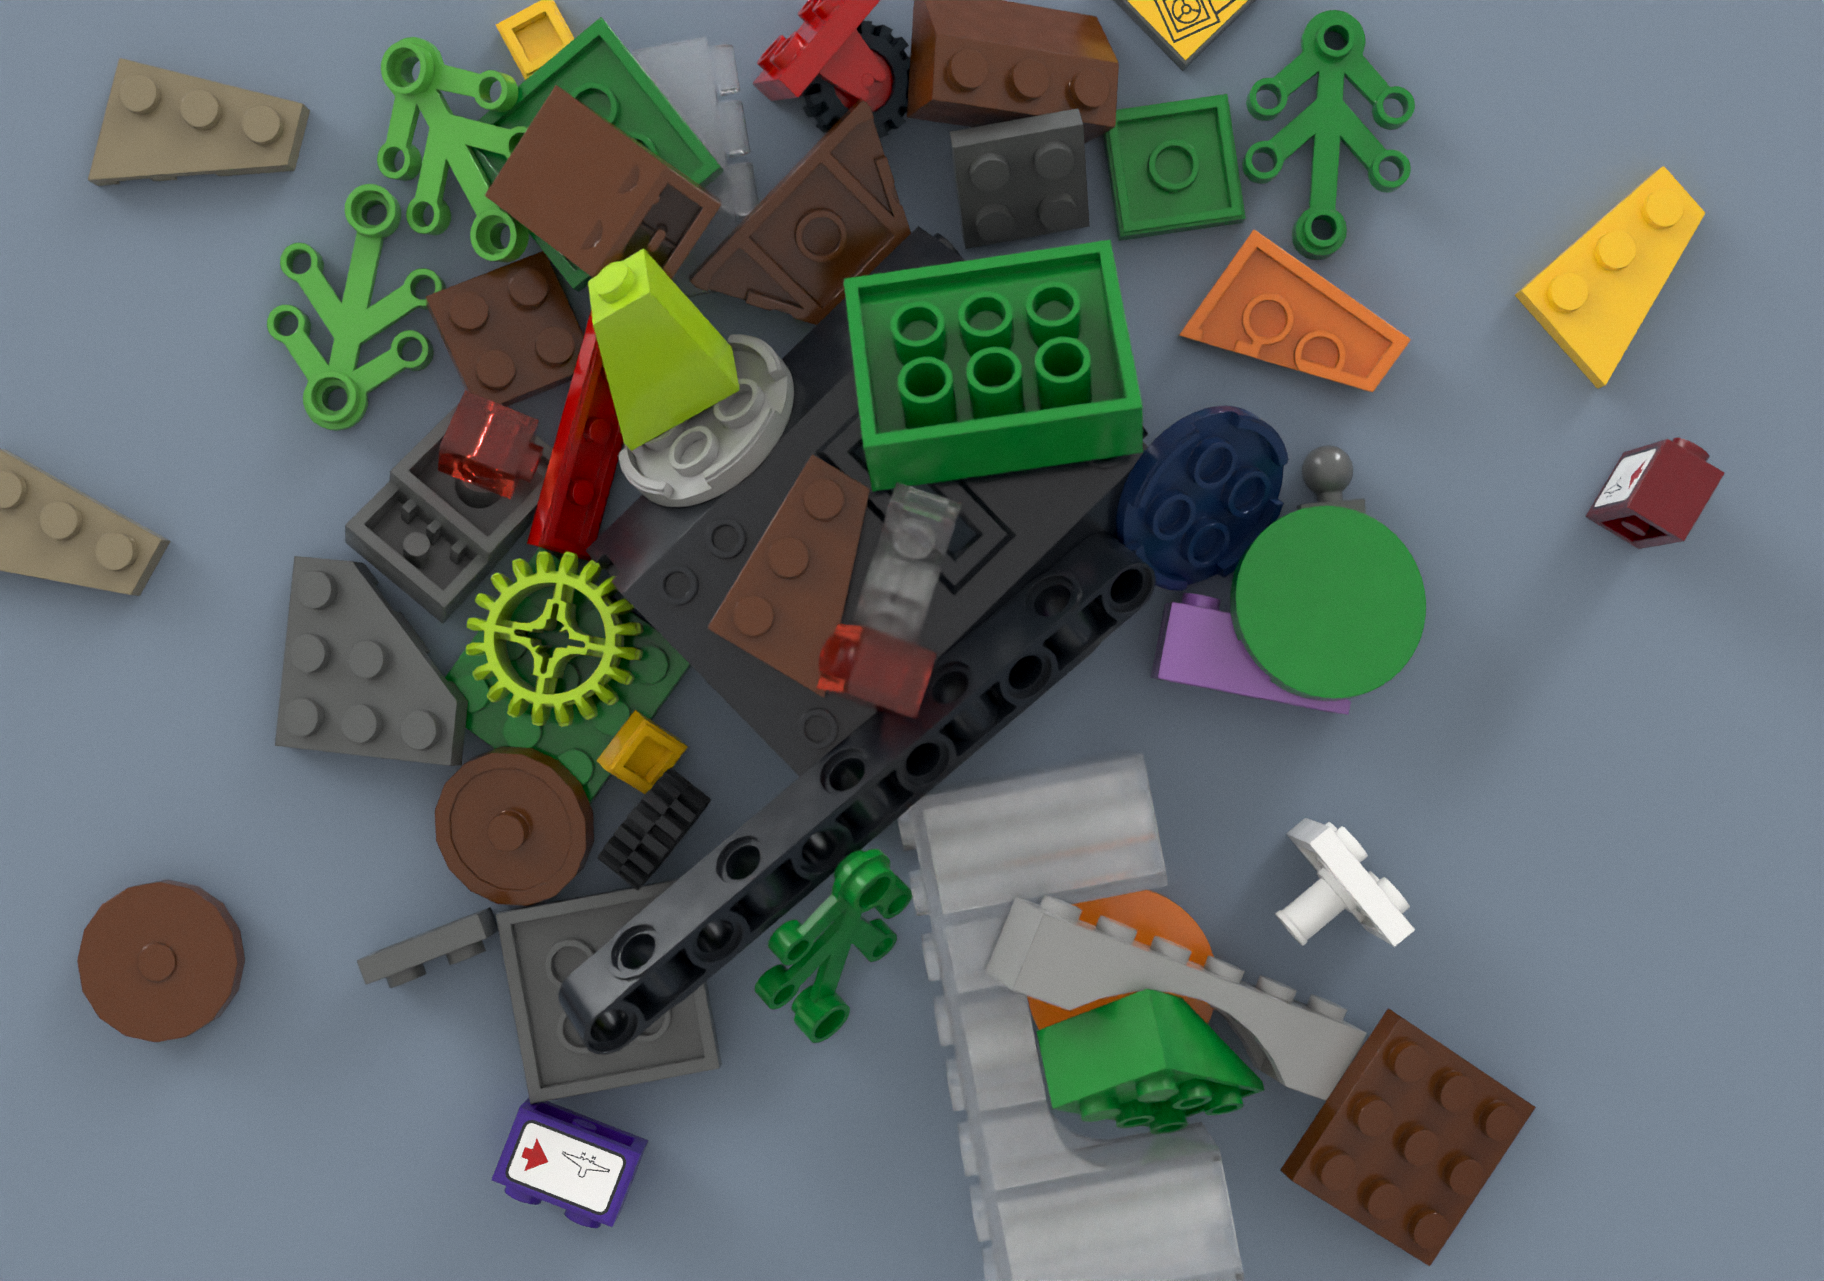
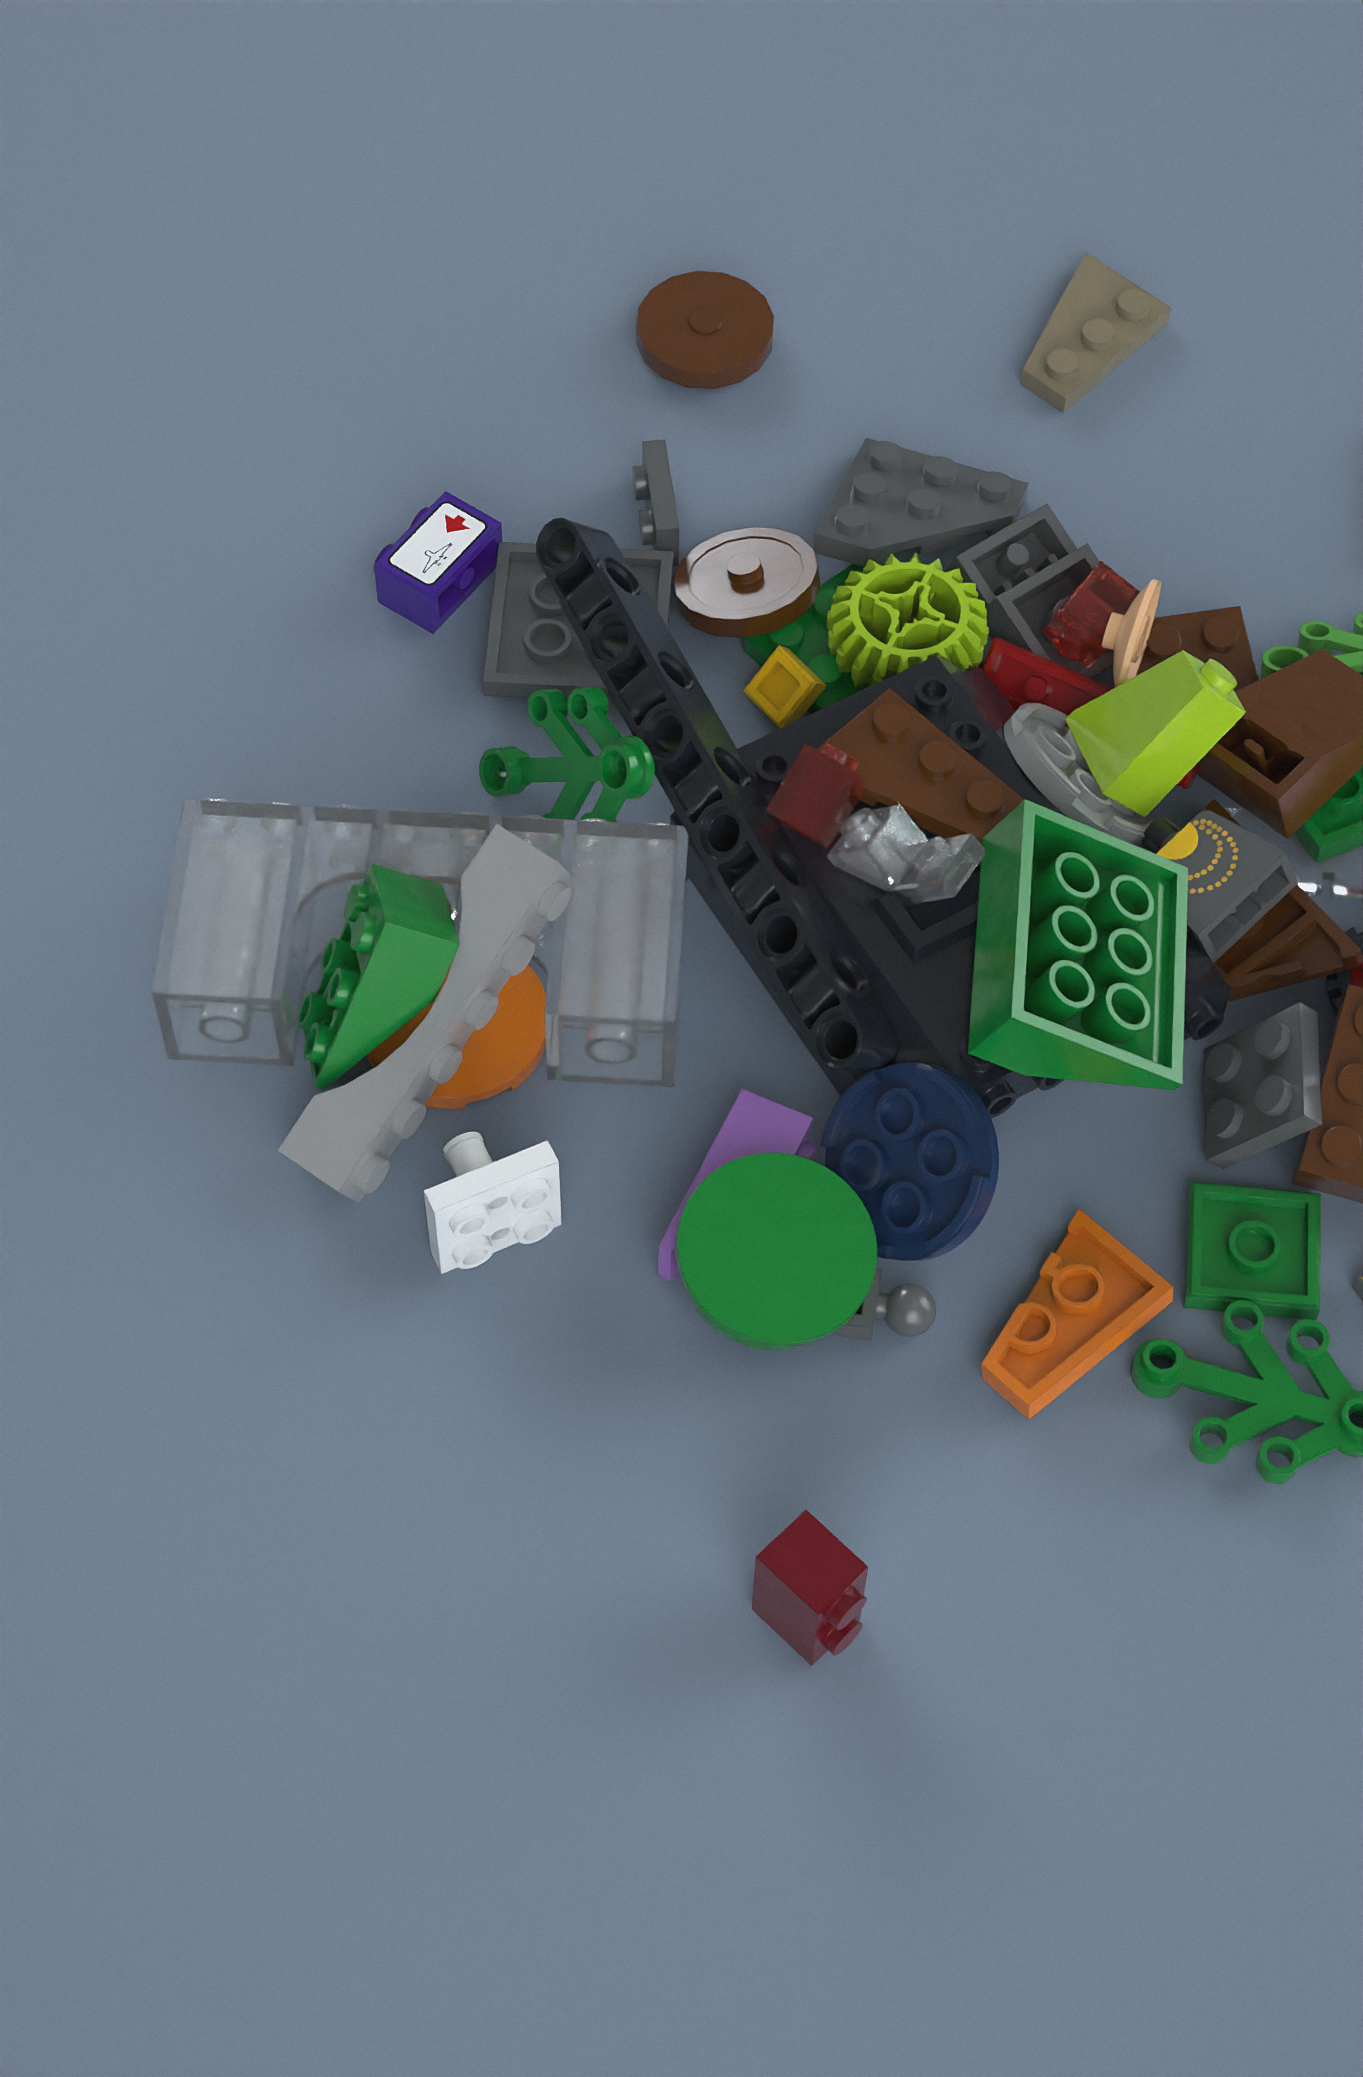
camera: 105 degrees right, 30 degrees down
(352, 319) = (1174, 544): bright green plant -> none
(530, 396) = (1129, 632): none -> light nougat dish
(653, 828) = (722, 666): black tyre -> none
(801, 264) = (1230, 876): none -> dark grey torso
(1407, 1138) = (219, 1215): reddish brown plate -> none
(1612, 275) = (1060, 1645): yellow wing -> none

